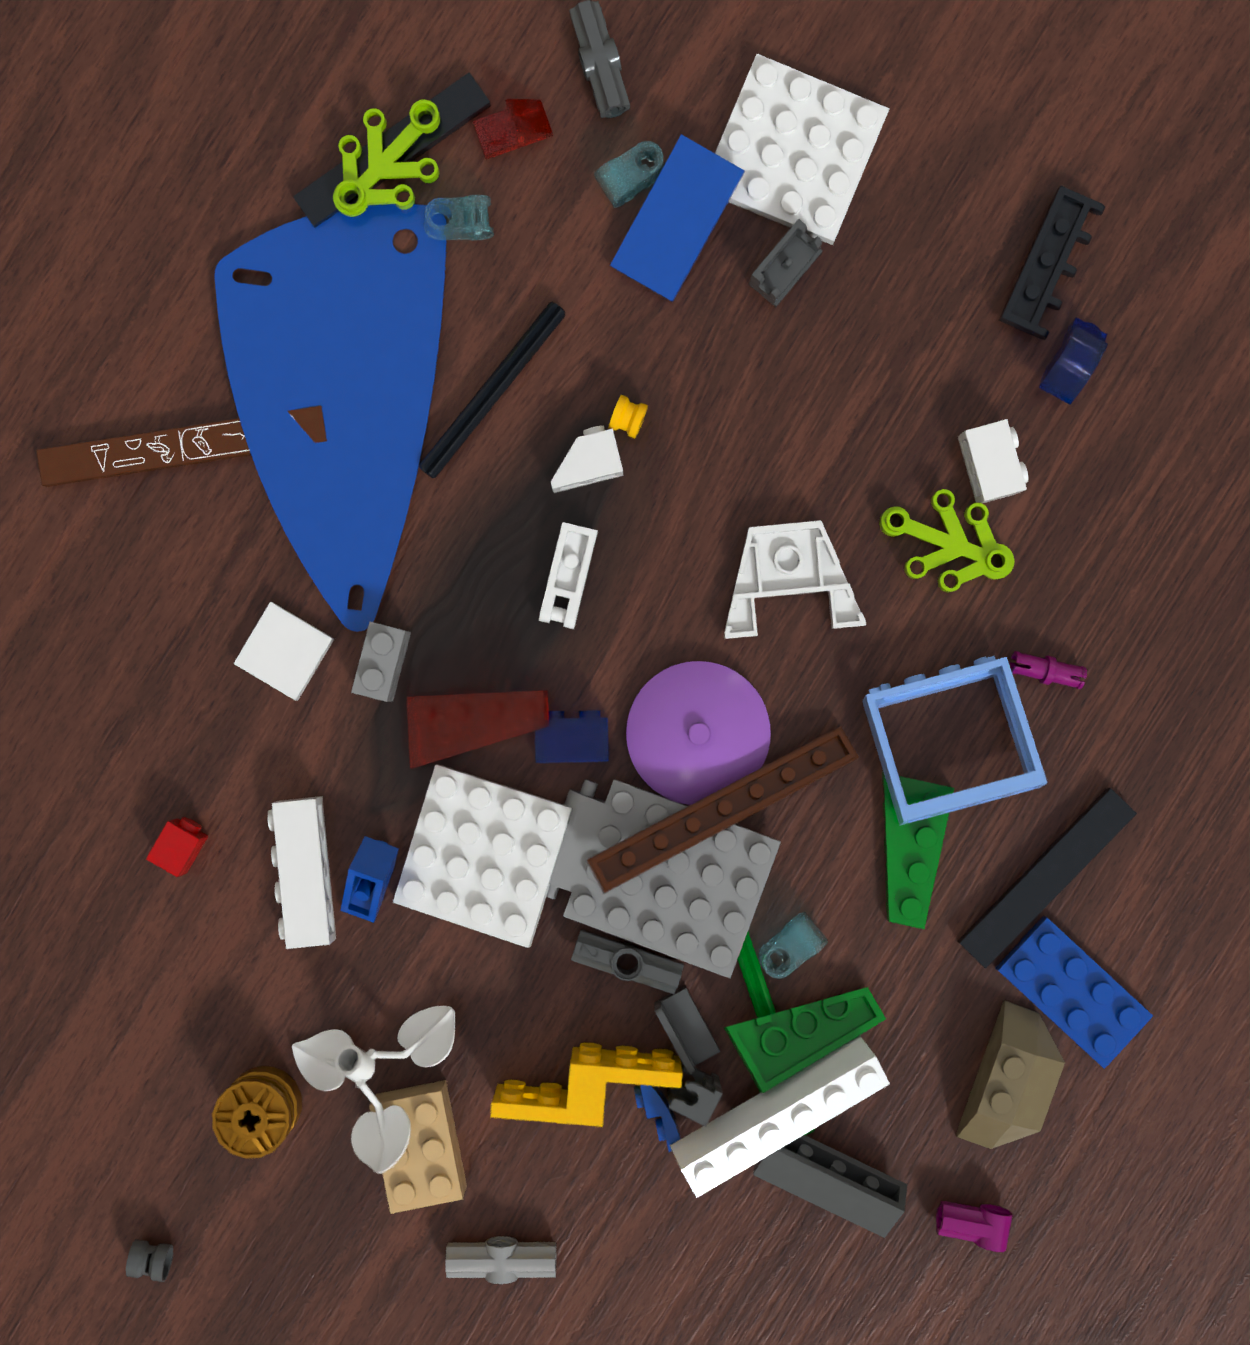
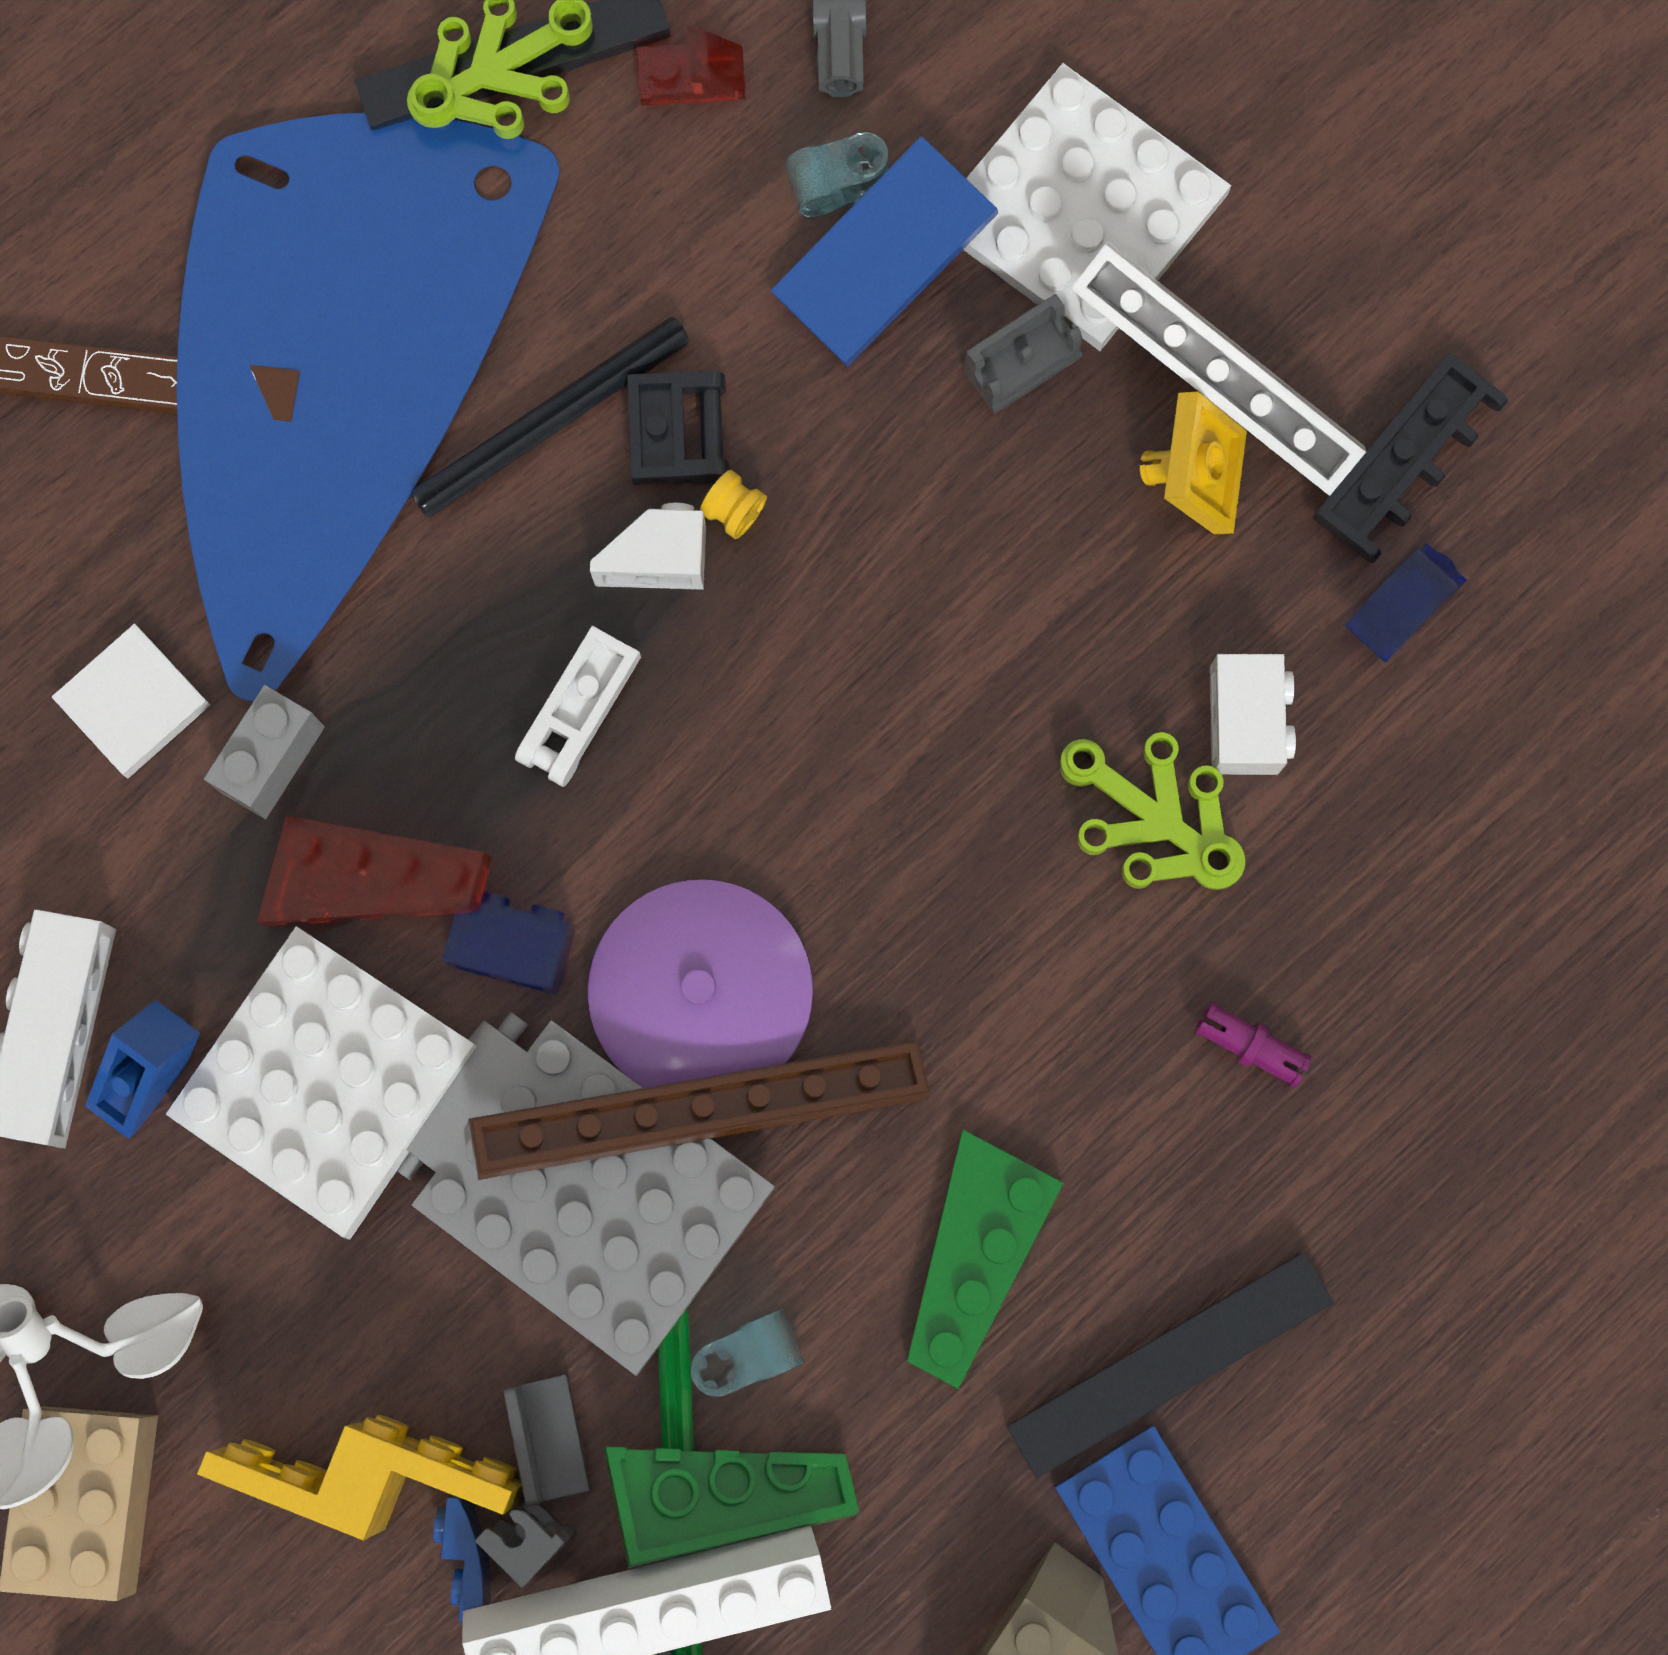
camera: 20 degrees right, 10 degrees down
(462, 218) = (580, 169): clear light blue piece -> none
(565, 378) = (659, 427): none -> black plate
(650, 970) = (456, 1286): dark grey piece -> none
(789, 562) = (904, 777): white wing -> none
(917, 240) = (1219, 368): none -> white brick
(921, 308) = (1203, 463): none -> yellow tile
(949, 678) = (1082, 1197): light blue window -> none

